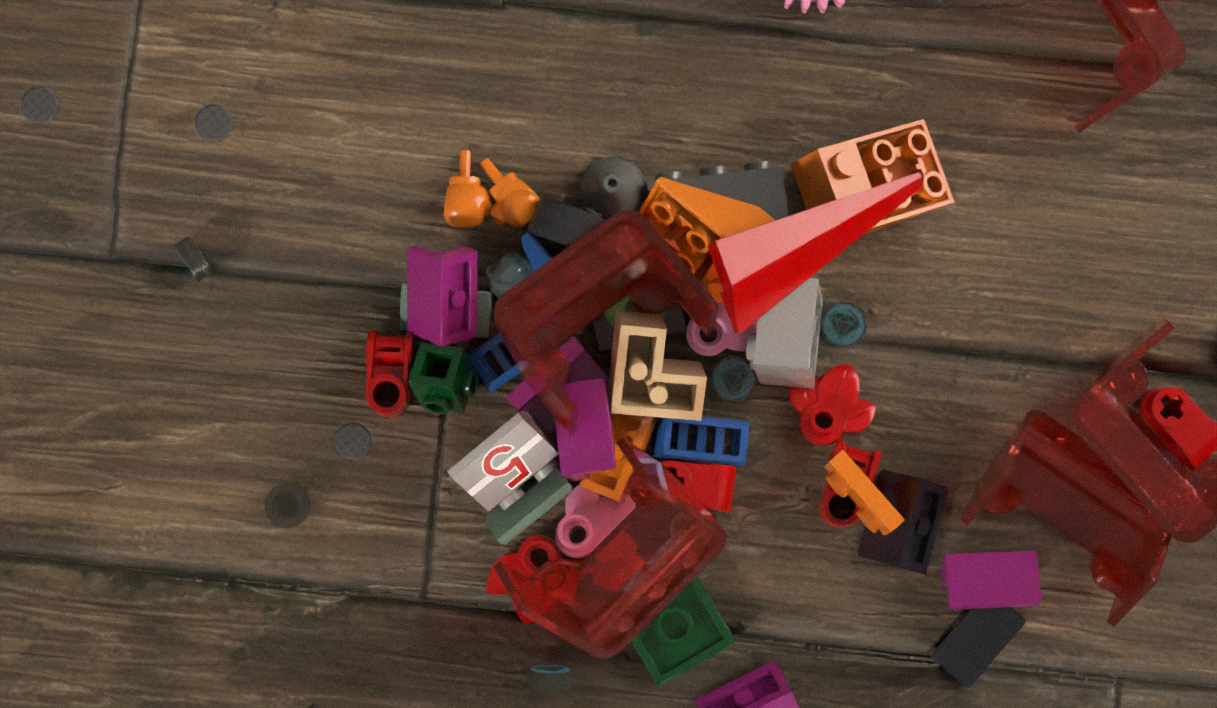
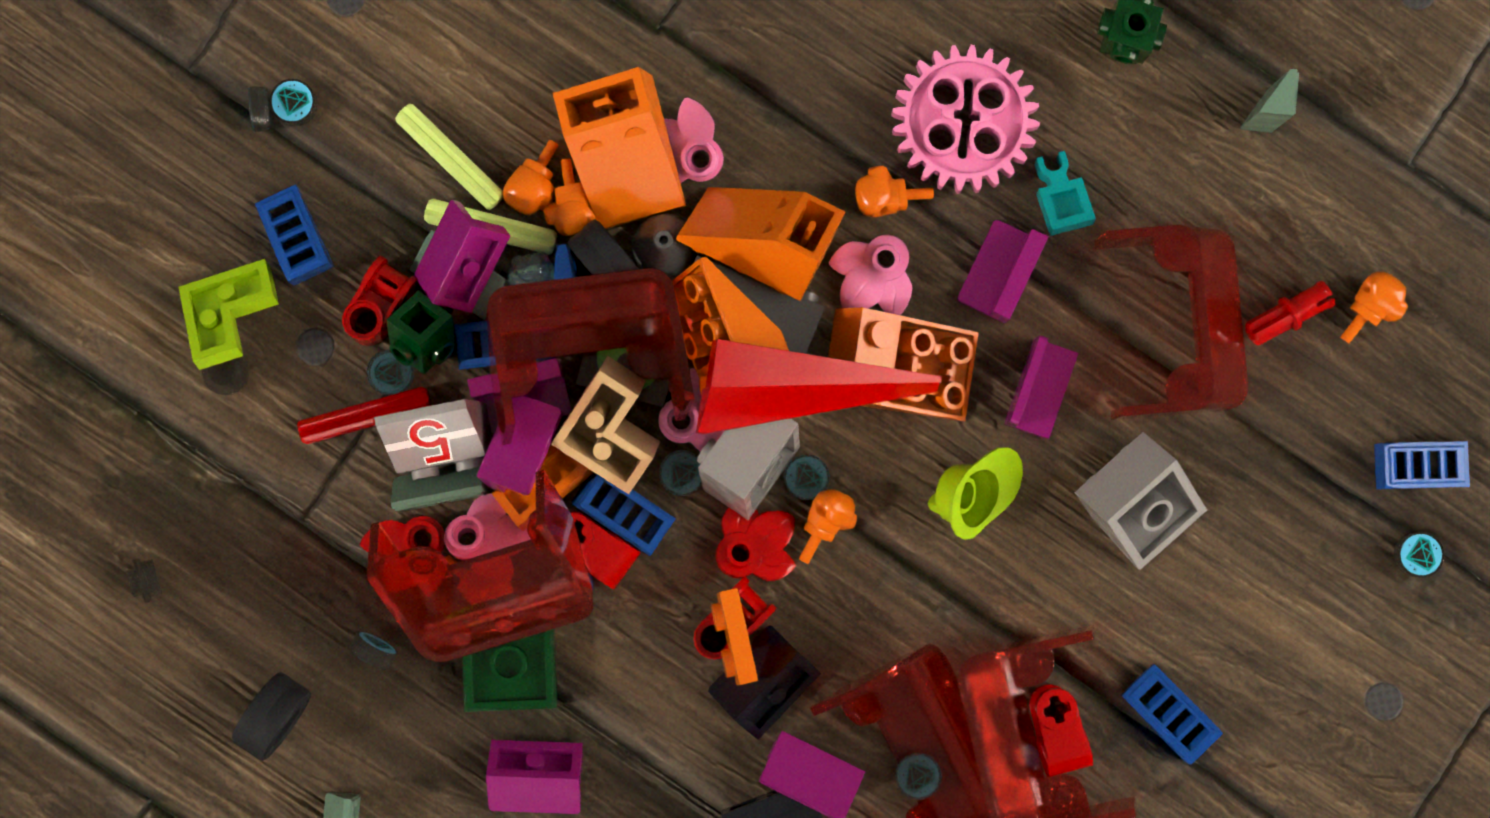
camera: 25 degrees right, 0 degrees up
(218, 237) = (293, 102): none -> tile
(248, 446) = (216, 302): none -> lime plate
(310, 375) = (309, 267): none -> blue slope
(381, 212) = (449, 156): none -> yellowish green axle
(427, 478) = (360, 415): none -> red axle
(431, 430) = (388, 375): none -> clear smoke tile
(487, 245) = (521, 233): none -> yellowish green axle
(529, 123) = (620, 147): none -> orange slope
(574, 94) = (690, 134): none -> bright pink plate
(696, 131) = (764, 234): none -> orange slope
(777, 44) = (882, 195): none -> orange piece
(804, 124) = (868, 280): none -> bright pink plate
(880, 346) = (828, 514): none -> orange piece
(916, 54) = (1001, 270): none -> magenta panel
(1000, 257) = (977, 492): none -> lime piece
(1004, 138) = (1041, 388): none -> magenta panel
(1081, 530) = (918, 776): none -> clear smoke tile
(1144, 187) = (1141, 500): none -> light grey slope

